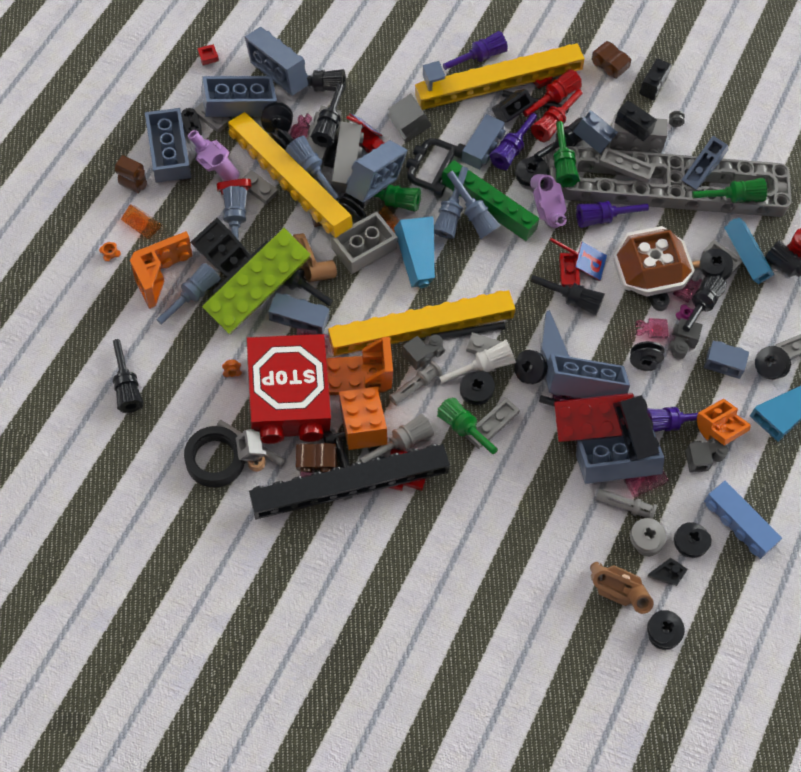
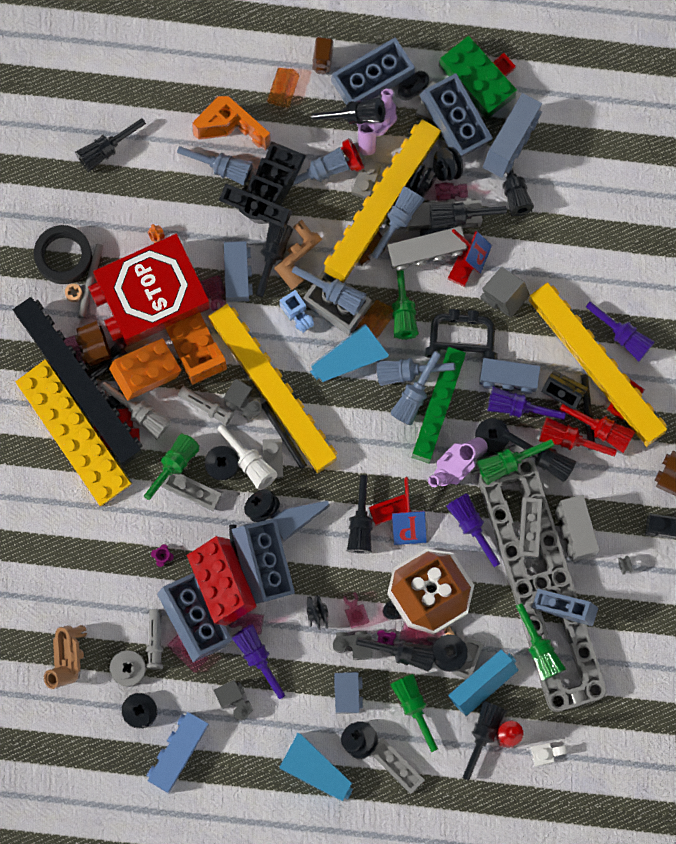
camera: 70 degrees right, 15 degrees up
(109, 246) = (242, 73): orange plate -> none
(189, 71) = (479, 76): none -> green brick
(199, 162) = (357, 112): none -> black piece
(249, 445) = (78, 280): light grey brick -> none
(256, 281) = (244, 219): lime brick -> none
(353, 206) = (368, 277): black piece -> none
(355, 279) = (295, 309): none -> light blue brick
(360, 229) = (336, 291): none -> sand blue piece
(375, 171) = (413, 281): sand blue brick -> none
(396, 507) = (73, 432): none -> yellow plate
(432, 72) = (559, 295): sand blue panel -> none
(548, 465) = (163, 549): none -> magenta plate
(595, 131) = (554, 482): sand blue brick -> none
(635, 120) = (575, 517): black brick -> none
(636, 427) = (211, 618): black brick -> none
(665, 639) = (52, 708): black piece -> none
(669, 572) = (101, 699): black piece -> none
(721, 422) = (269, 705): orange brick -> none
(752, 310) = (413, 705): none -> green piece

